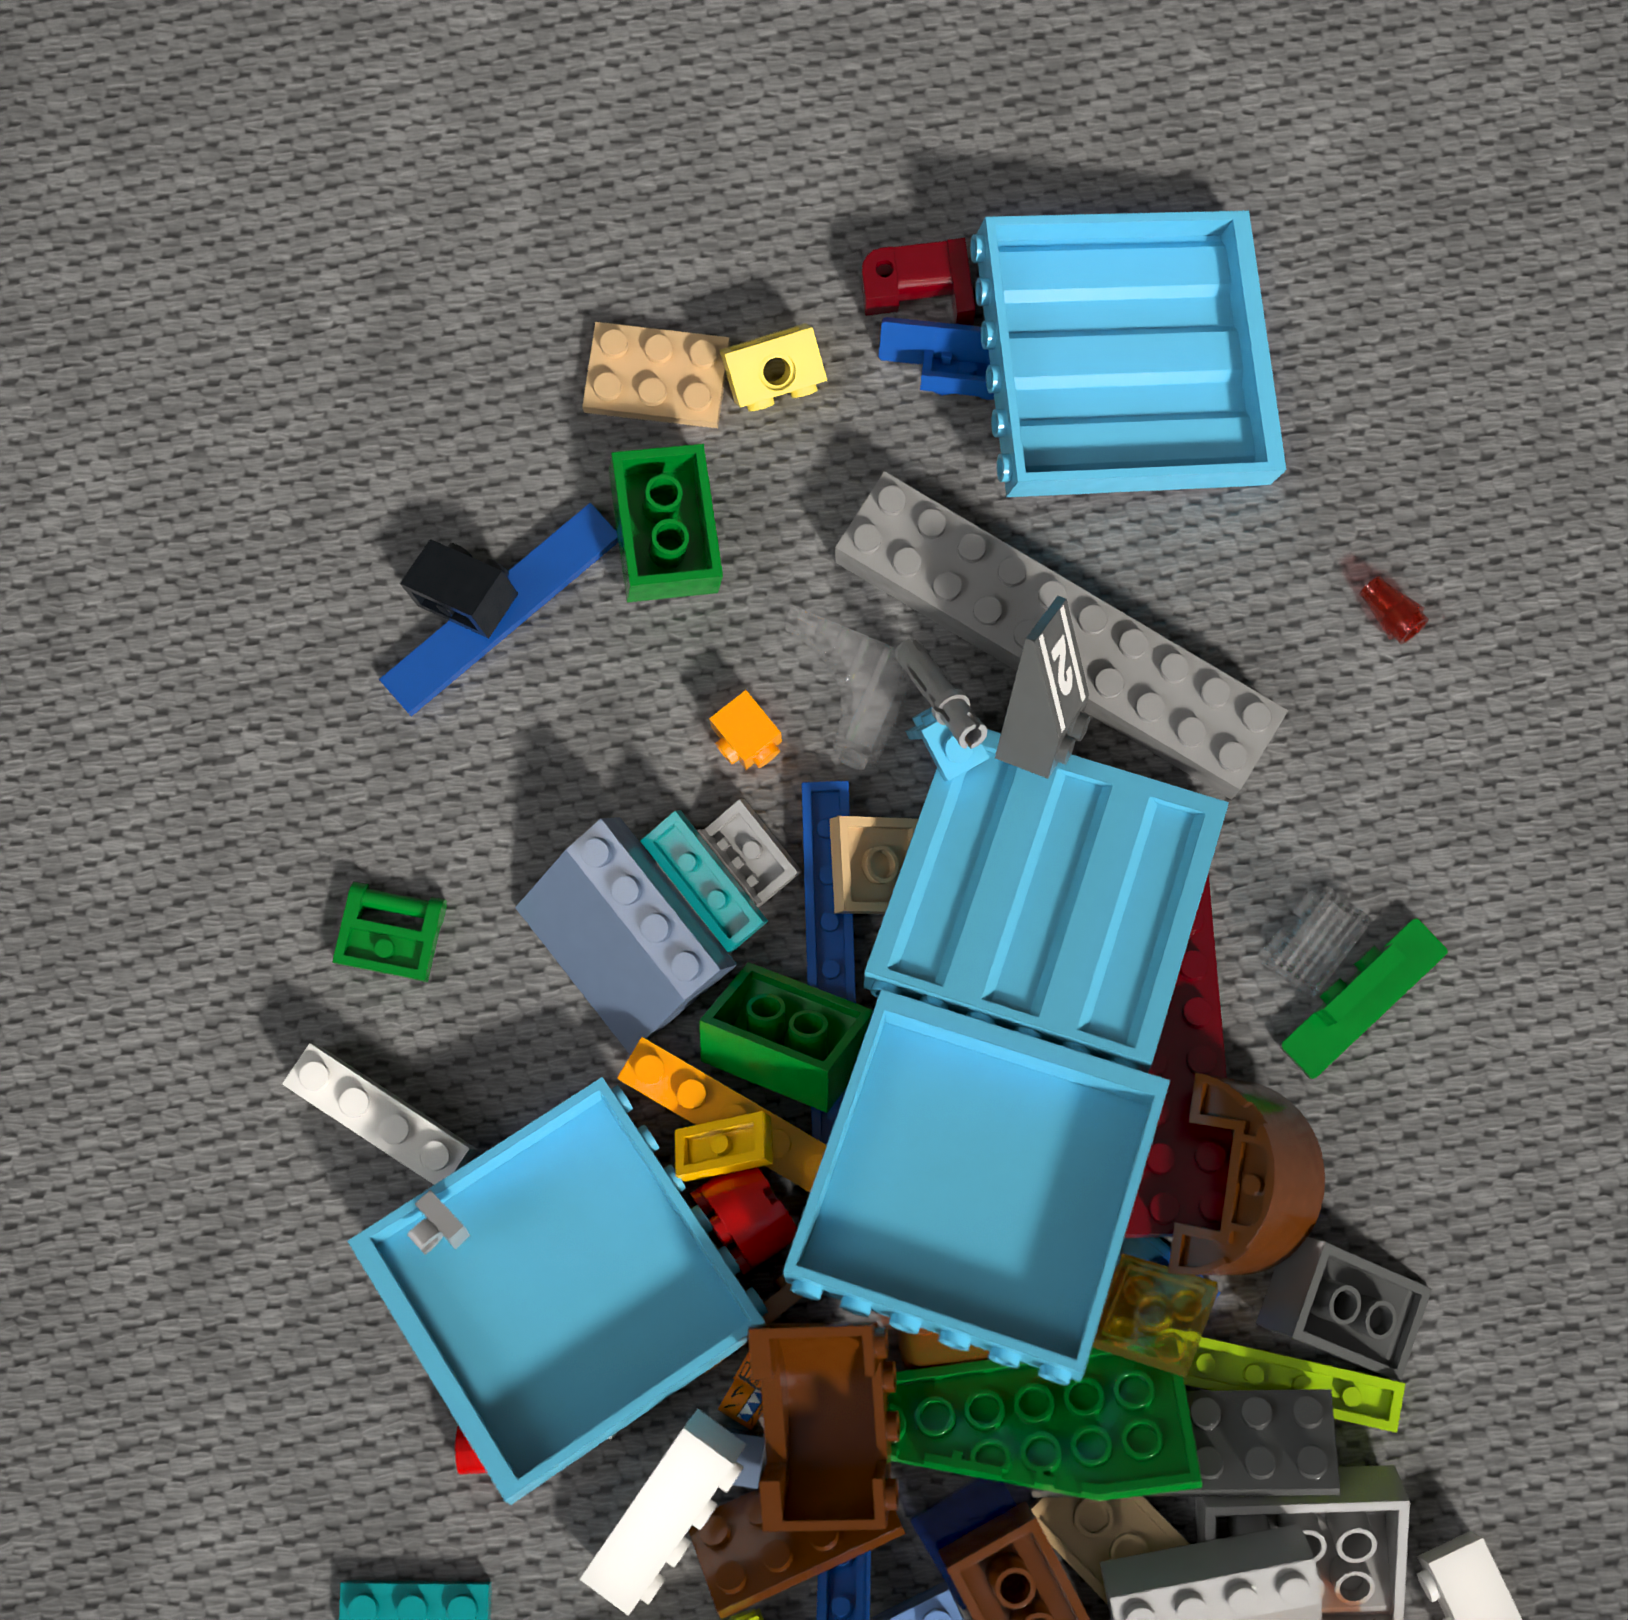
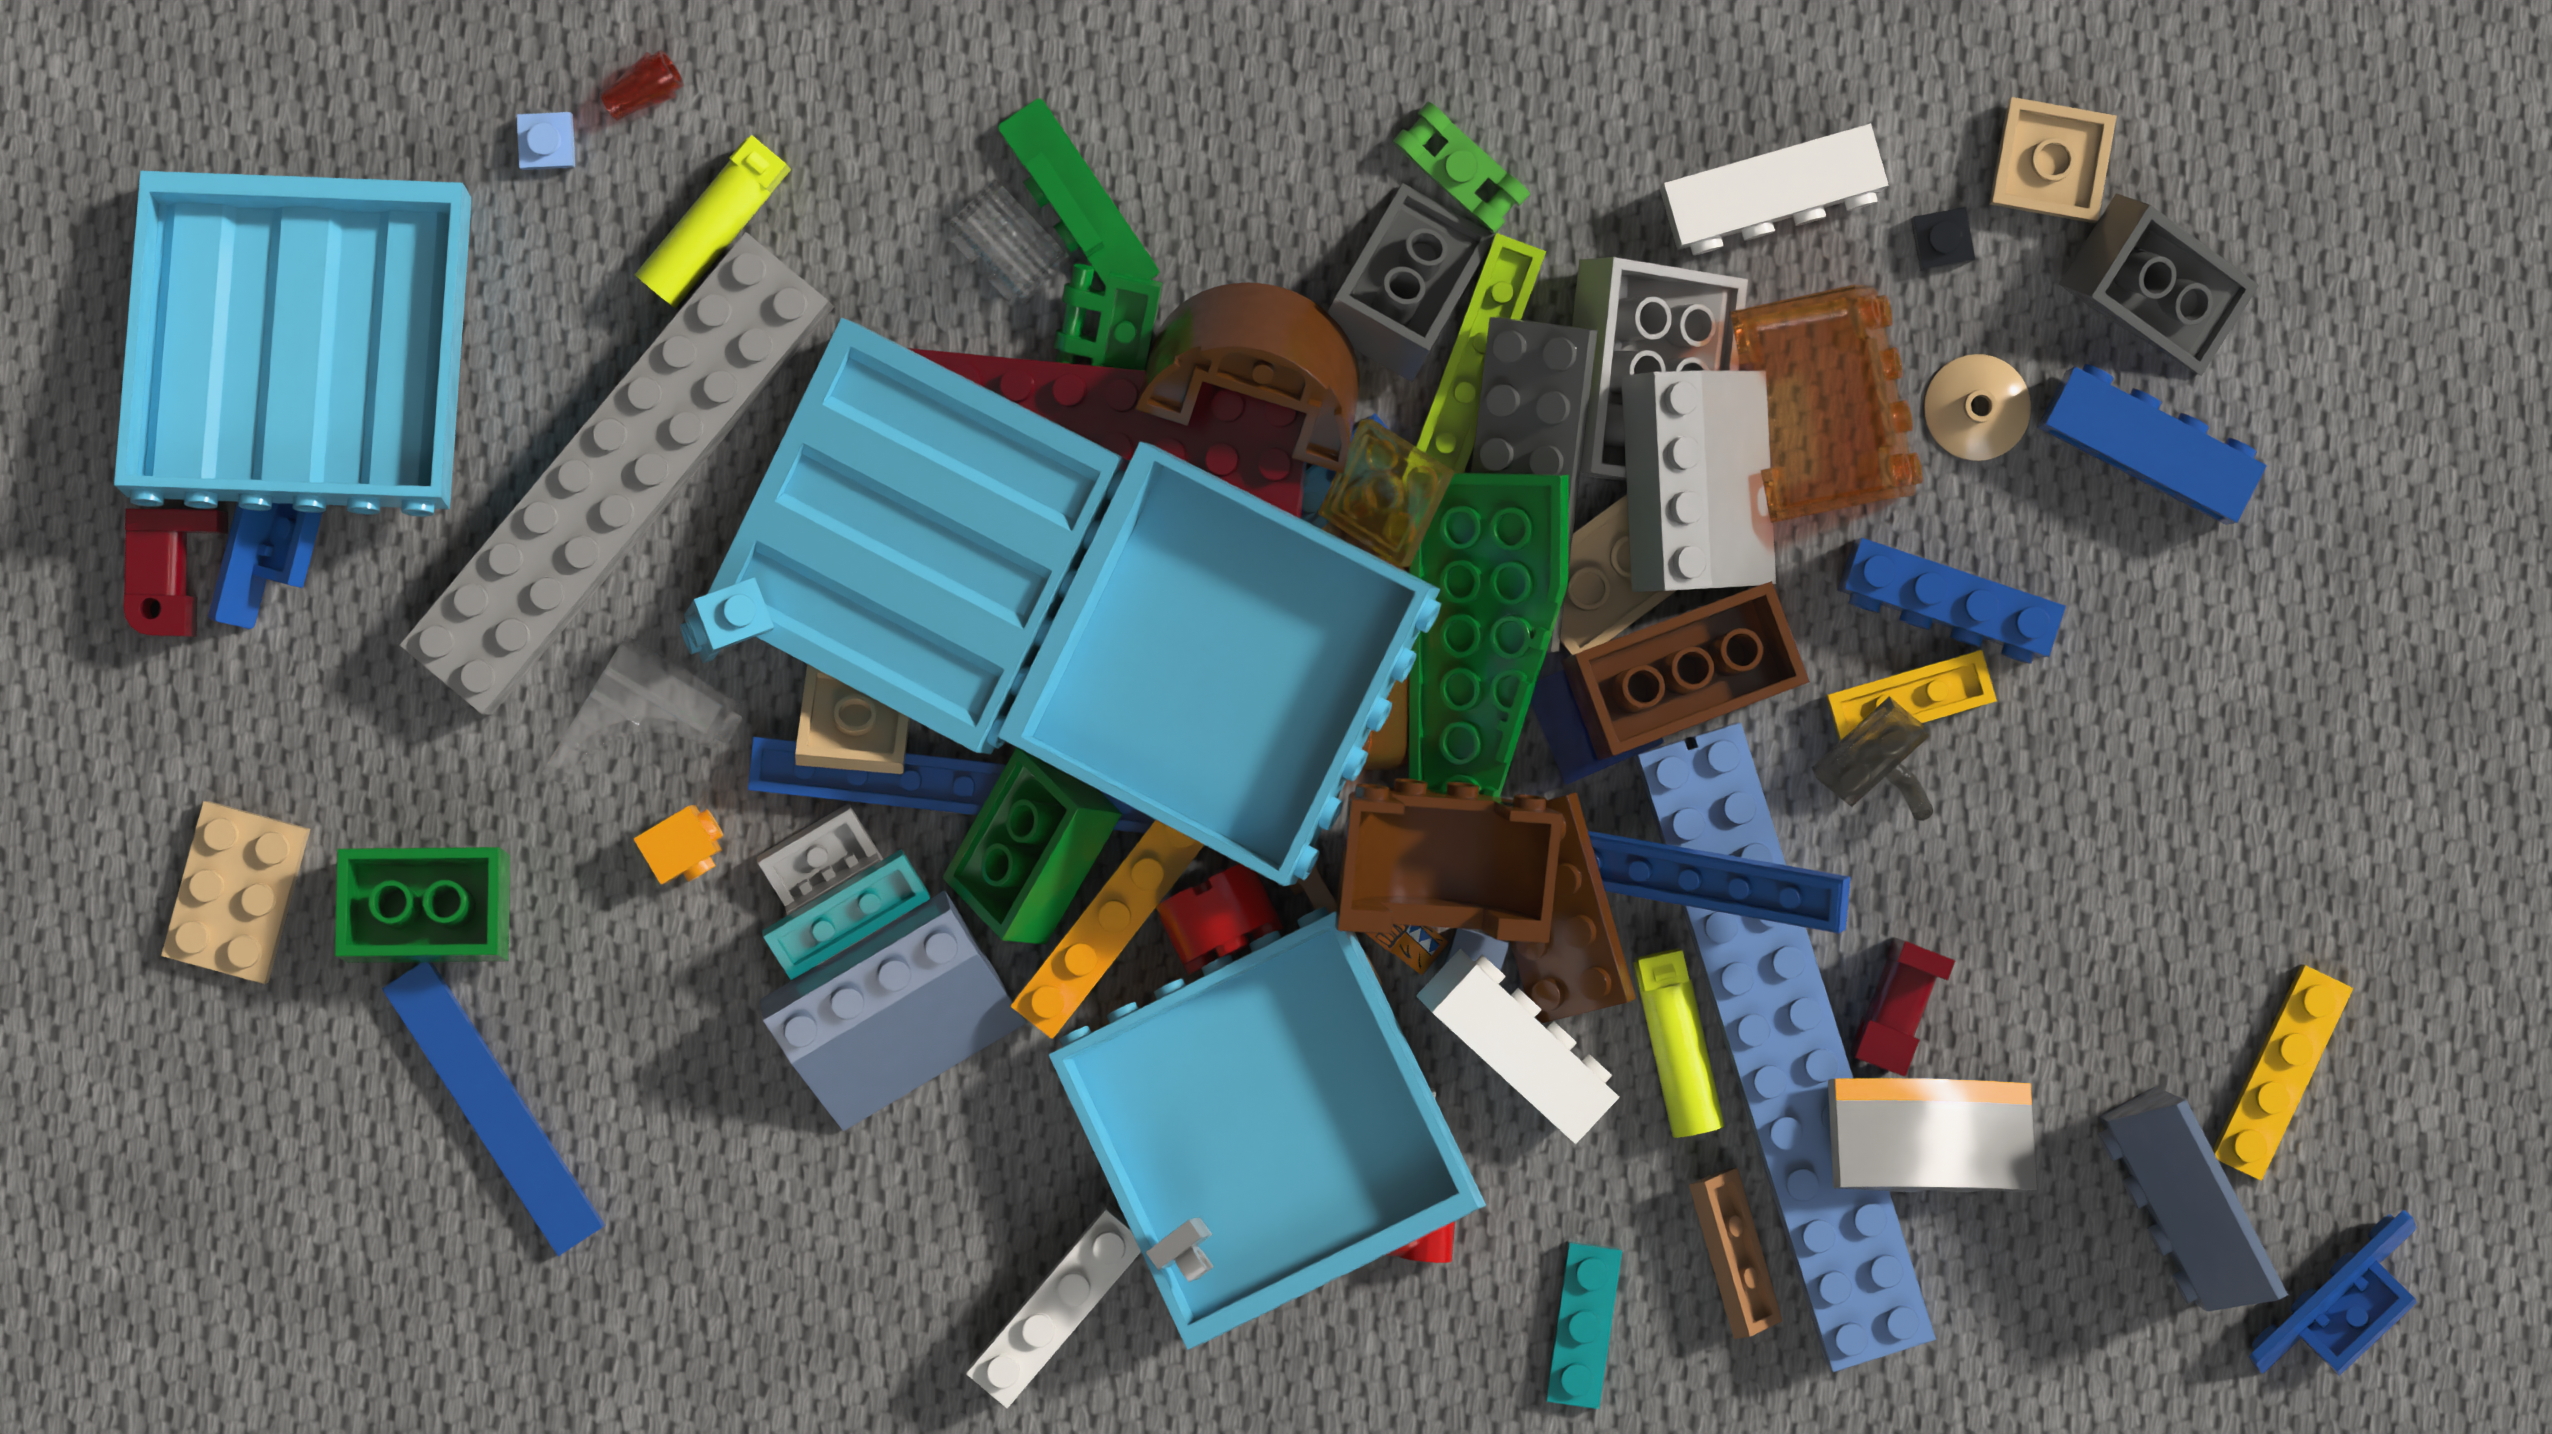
camera: 90 degrees left, 10 degrees up
(388, 947) = (868, 1280): green plate -> none
(460, 587) = (465, 1149): black brick -> none
(723, 1146) = (1143, 931): yellow plate -> none
(747, 360) = (235, 781): light yellow brick -> none
(948, 704) = (690, 615): light grey pin -> none
(1047, 697) = (695, 503): dark grey slope -> none
(1265, 1054) = (1125, 323): none -> green plate
(1290, 685) = (713, 221): none -> neon yellow piece
(1330, 537) = (546, 141): none -> light blue plate
(1456, 1341) = (1461, 167): none -> bright green plate

